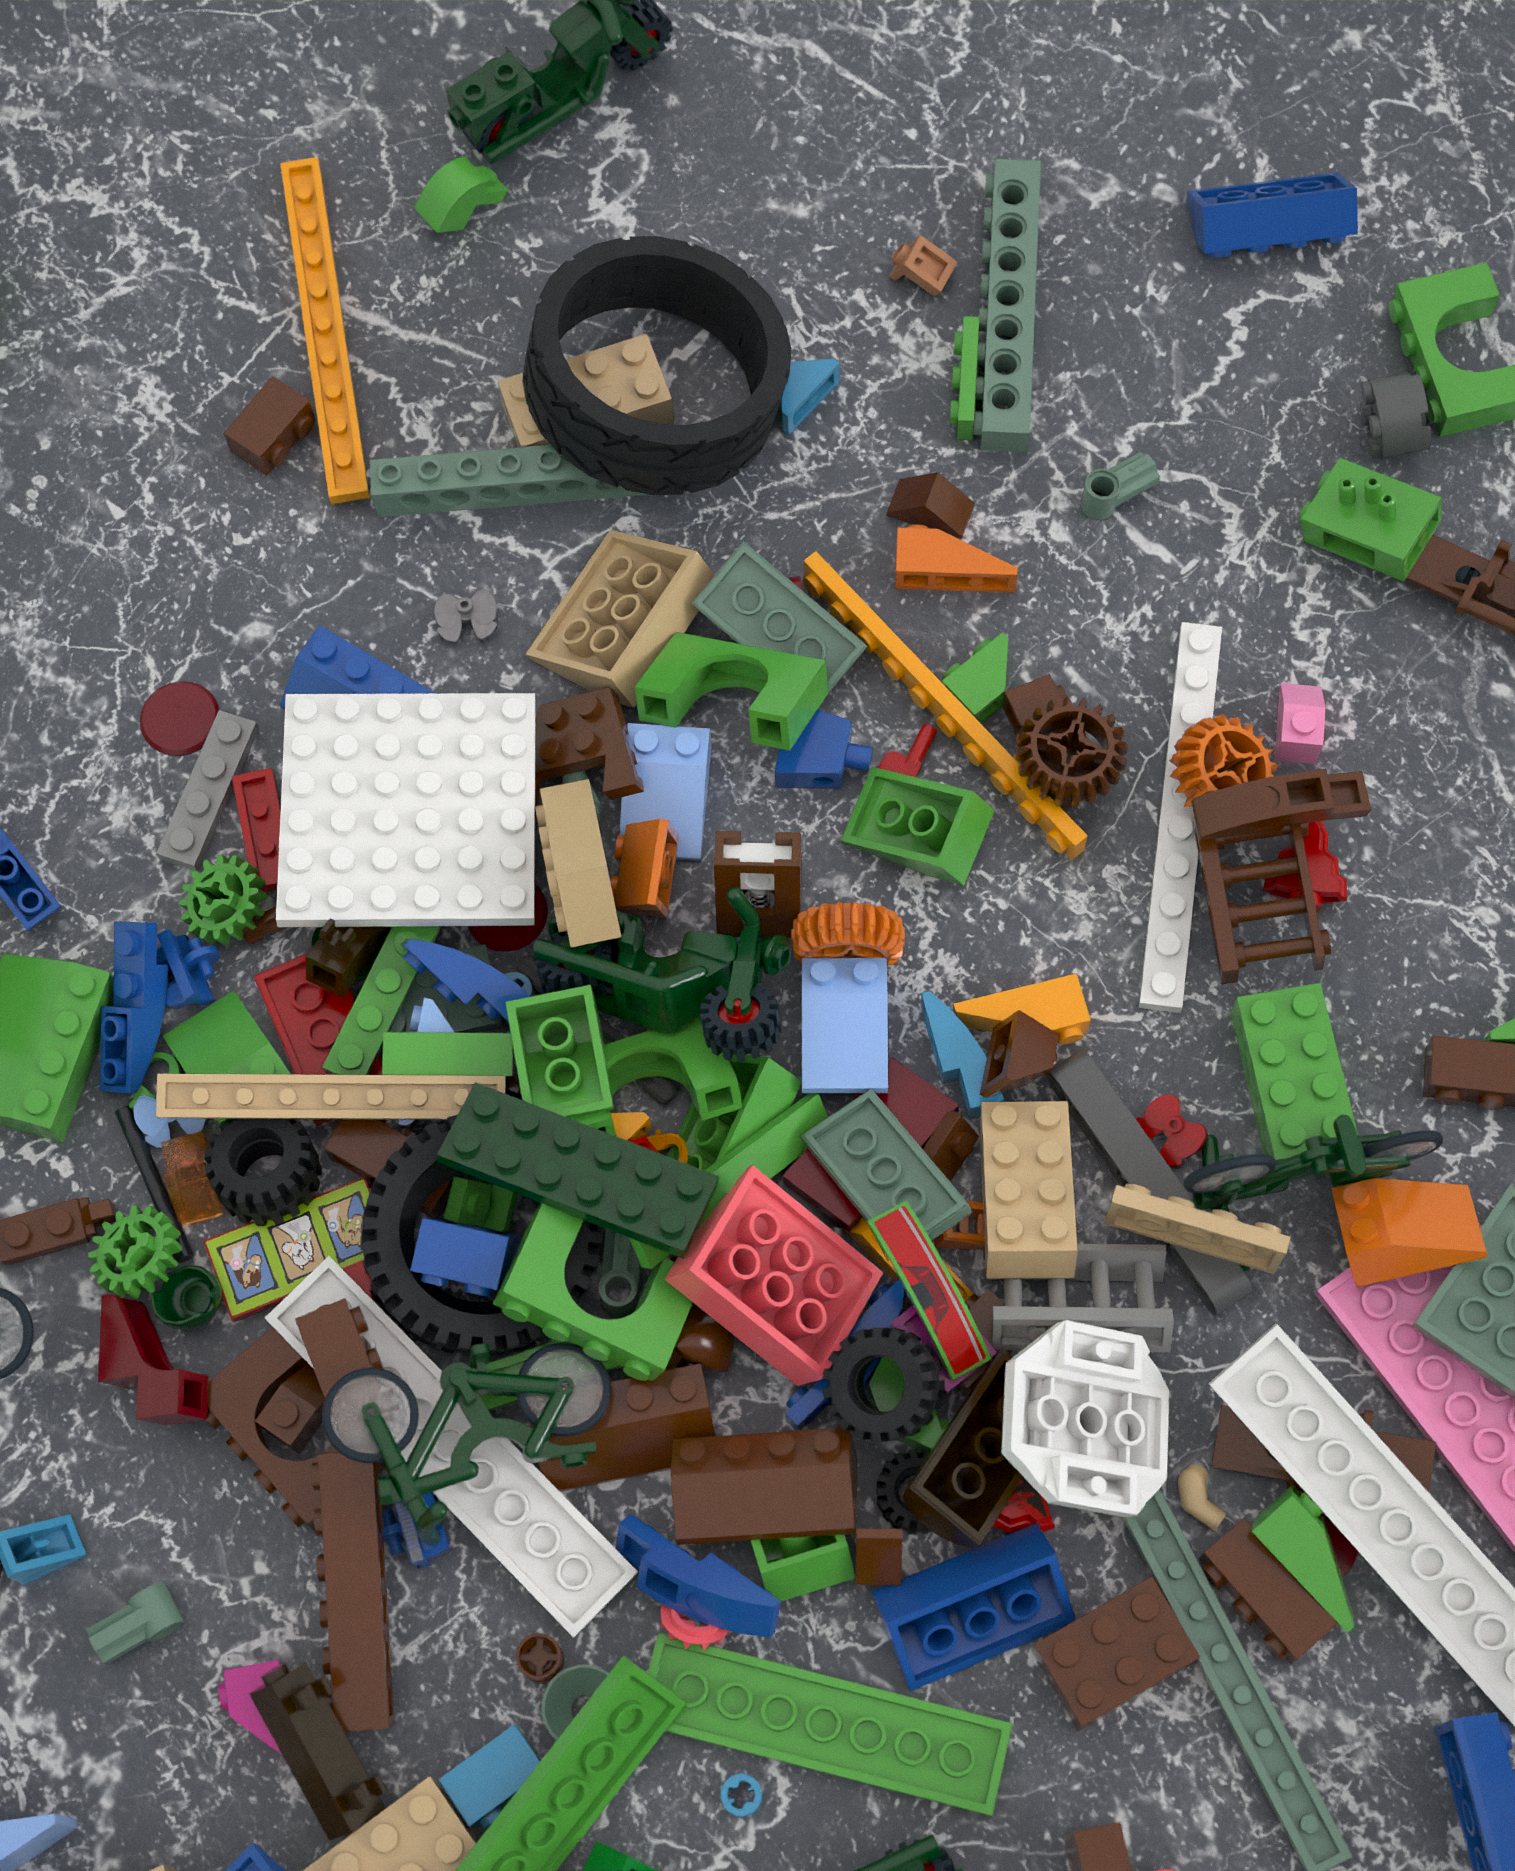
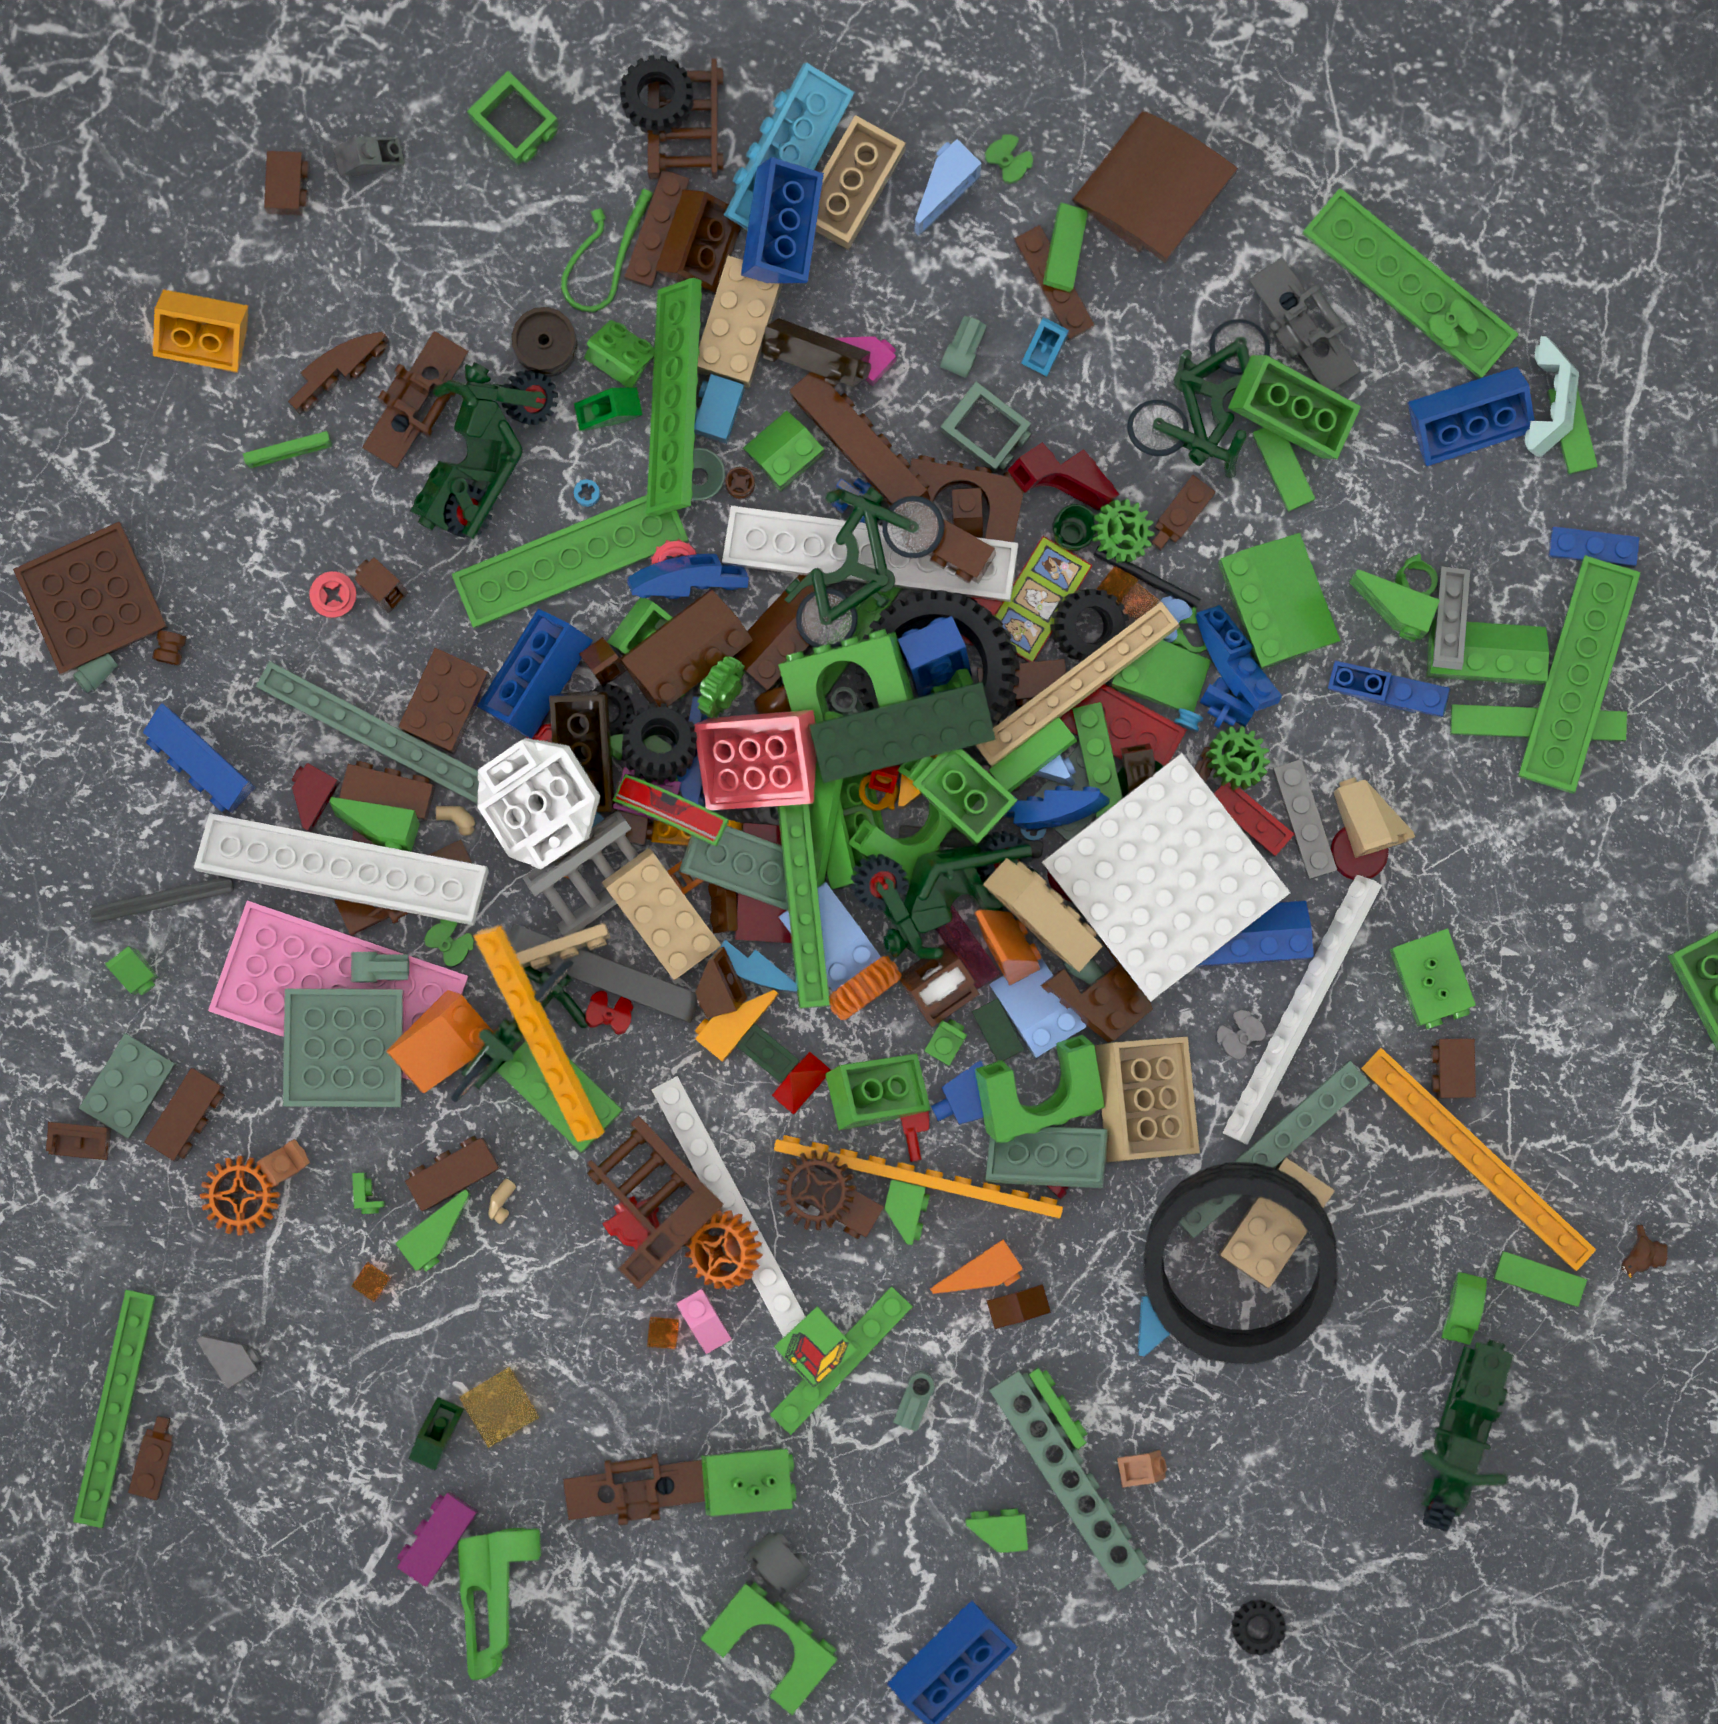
camera: 140 degrees right, 15 degrees up
(139, 731) = (1369, 819): none -> tan slope
(200, 1543) = (964, 407): none -> sand green window
(214, 529) = (1433, 979): none -> bright green piece
(236, 130) = (1644, 1254): none -> reddish brown animal
(242, 983) = (1188, 720): none -> dark azure bush
(361, 180) = (1540, 1279): none -> bright green tile
(378, 592) = (1302, 1009): none -> white plate
(454, 1660) = (784, 450): none -> bright green slope
(695, 896) = (965, 945): none -> clear pink plate
(730, 798) = (997, 1030): none -> dark green tile
(755, 1404) = (720, 687): none -> bright green gear
(801, 819) = (946, 1041): none -> bright green bracket
(852, 1065) = (803, 906): none -> bright green plate
(918, 32) = (1252, 1610): none -> black tyre
(997, 900) = (801, 1083): none -> red slope
(1012, 950) = (767, 1053): none -> dark green plate
(1121, 301) = (1002, 1531): none -> bright green slope
(1170, 581) = (864, 1337): none -> bright green plate
(1192, 601) = (815, 1348): none -> tile
(1286, 1129) = (538, 1033): none -> light orange plate
(1314, 1337) = (453, 951): none -> bright green piece
(1357, 737) = (663, 1333): none -> clear orange slope
(1366, 1660) = (312, 793): none -> dark red slope
(1437, 1379) = (371, 966): none -> sand green piece
(1452, 1010) = (498, 1199): none -> tan arm

